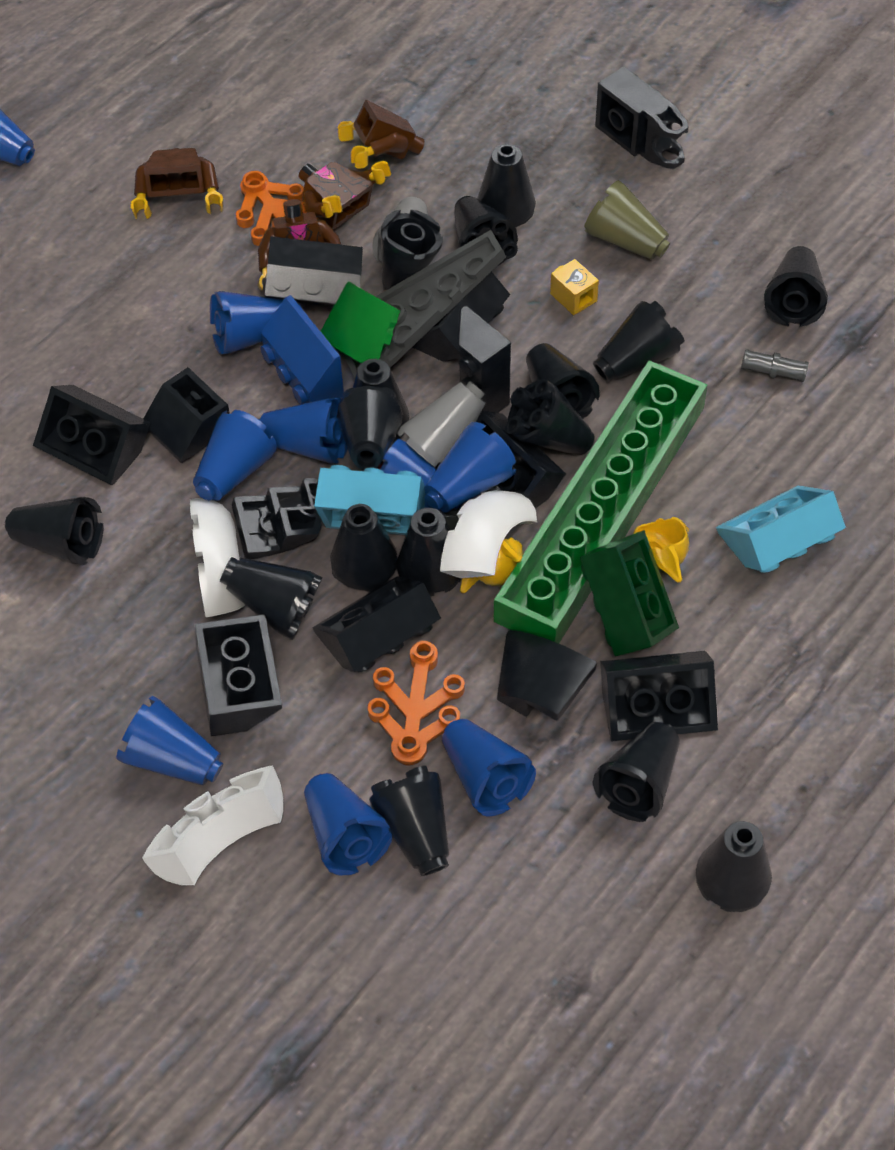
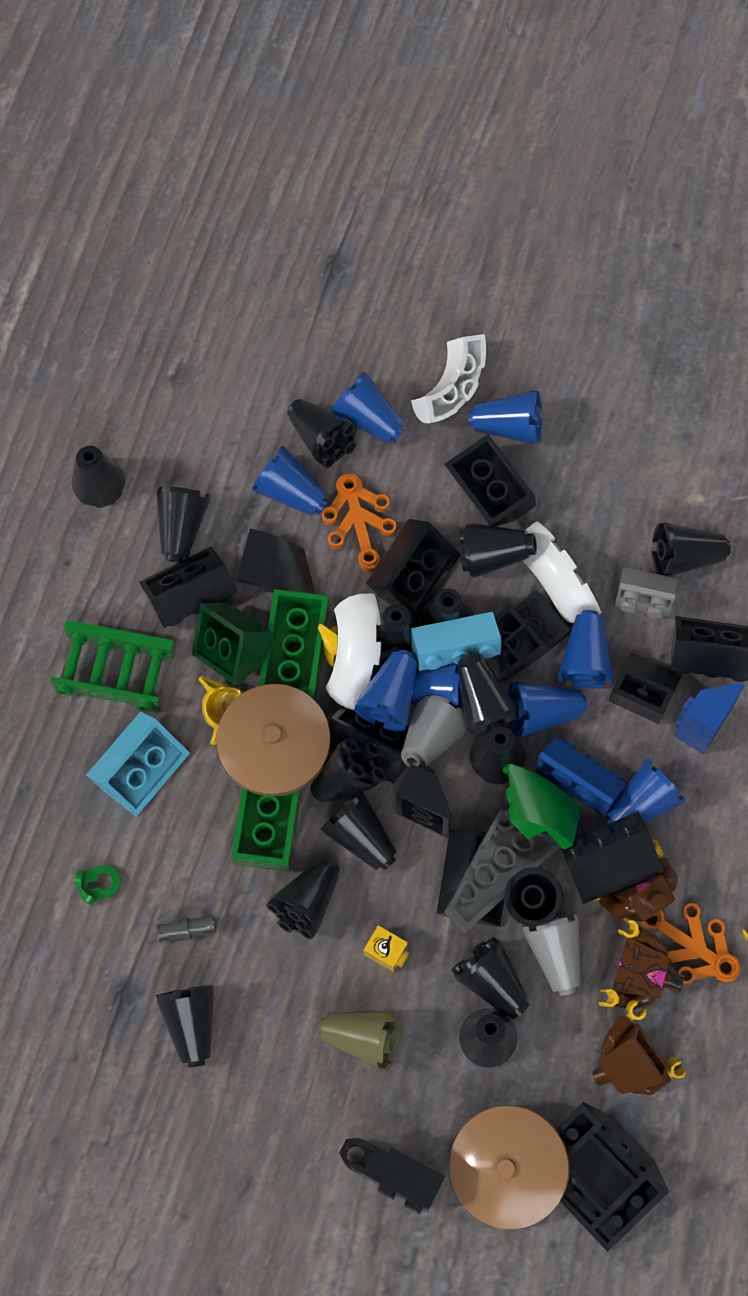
camera: 160 degrees right, 15 degrees up
(129, 498) = (645, 593): none -> light grey slope
(138, 347) = (705, 714): none -> blue slope
(452, 78) = (609, 1175): none -> black slope
(533, 104) = (509, 1167): none -> medium nougat dish
(619, 470) = (273, 740): none -> medium nougat dish
(767, 664) = (105, 640): none -> green fence
(873, 426) = (84, 878): none -> green piece

